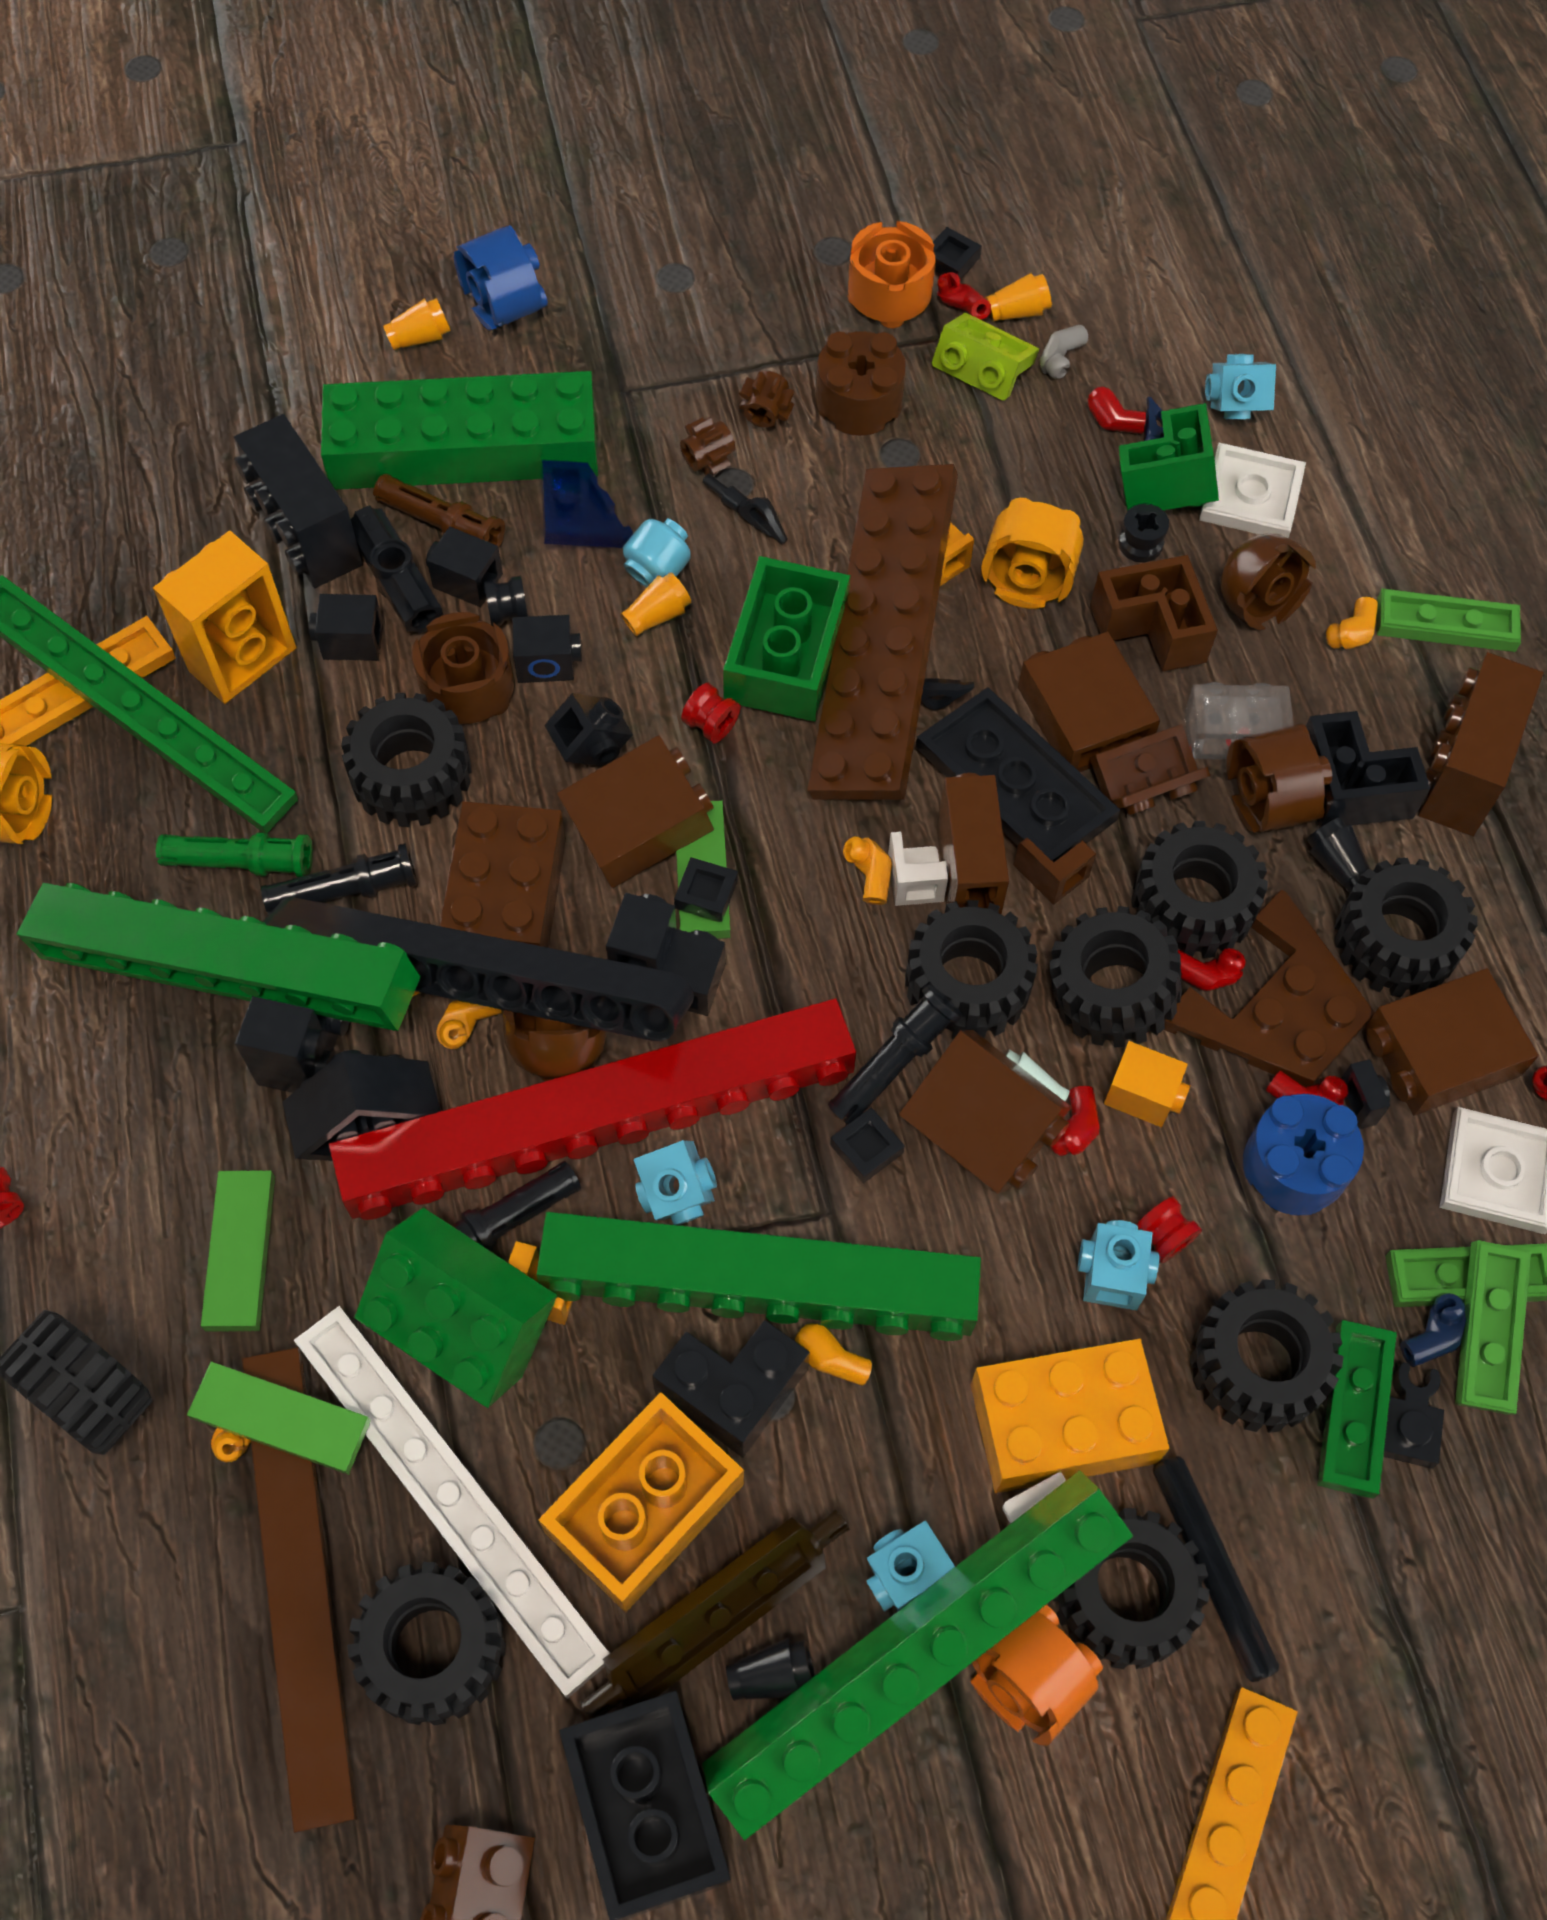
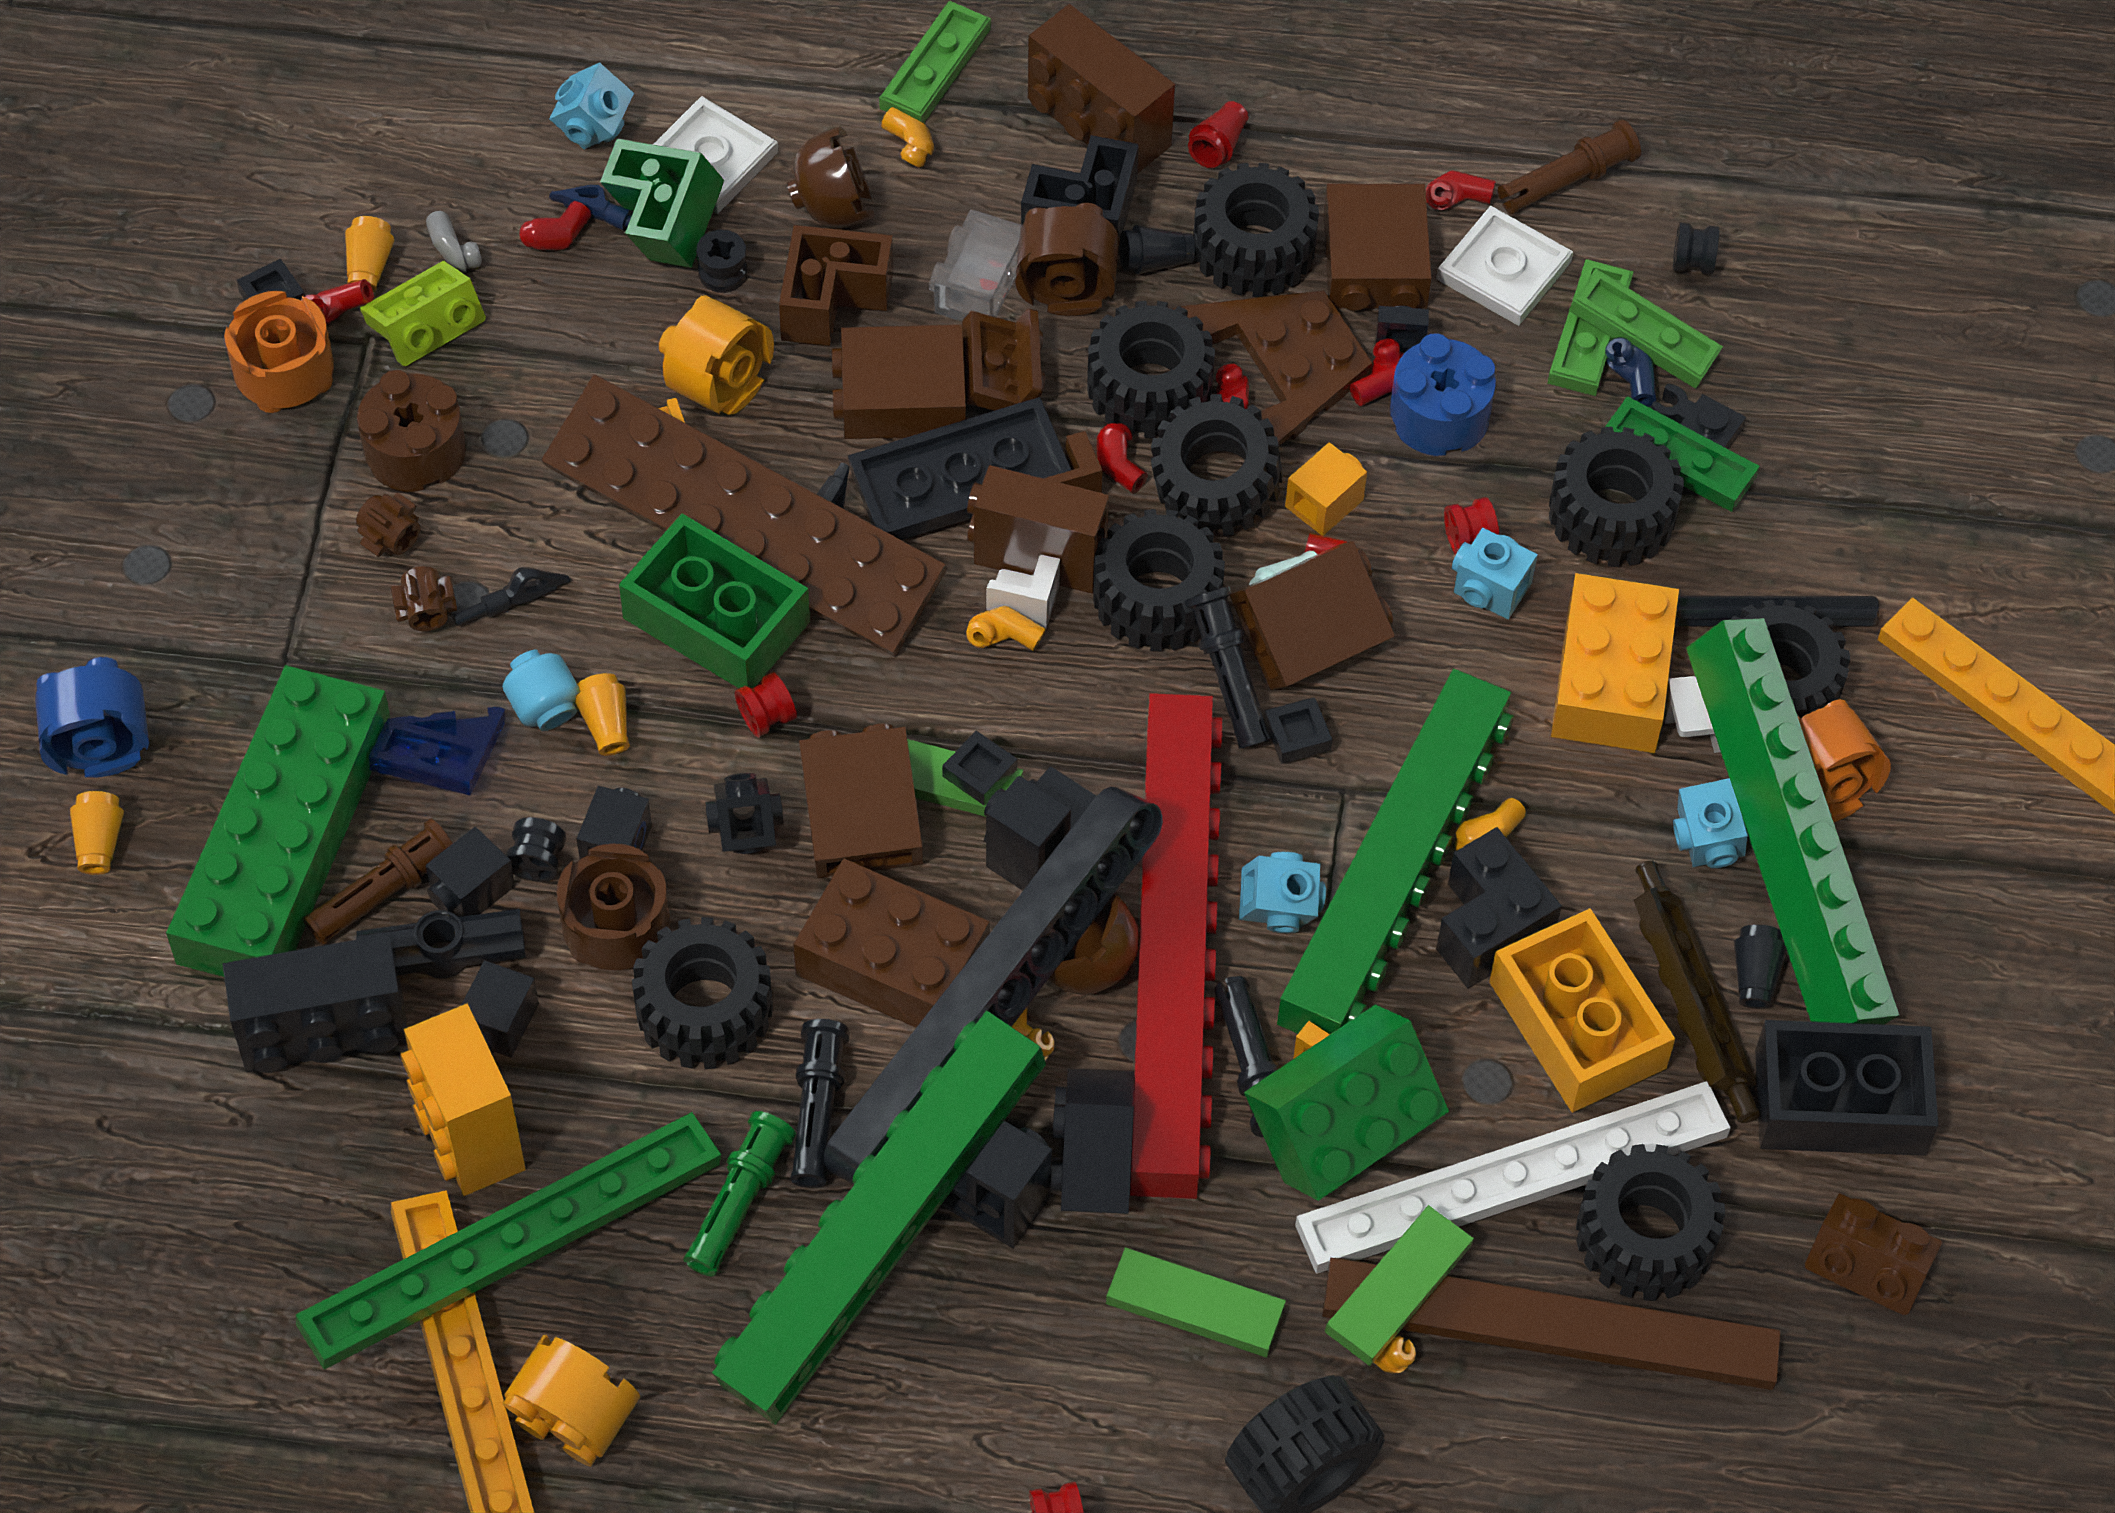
camera: 70 degrees left, 5 degrees down
(1107, 889) = (1113, 459): none -> red arm
(1501, 865) = (1216, 137): none -> red cone

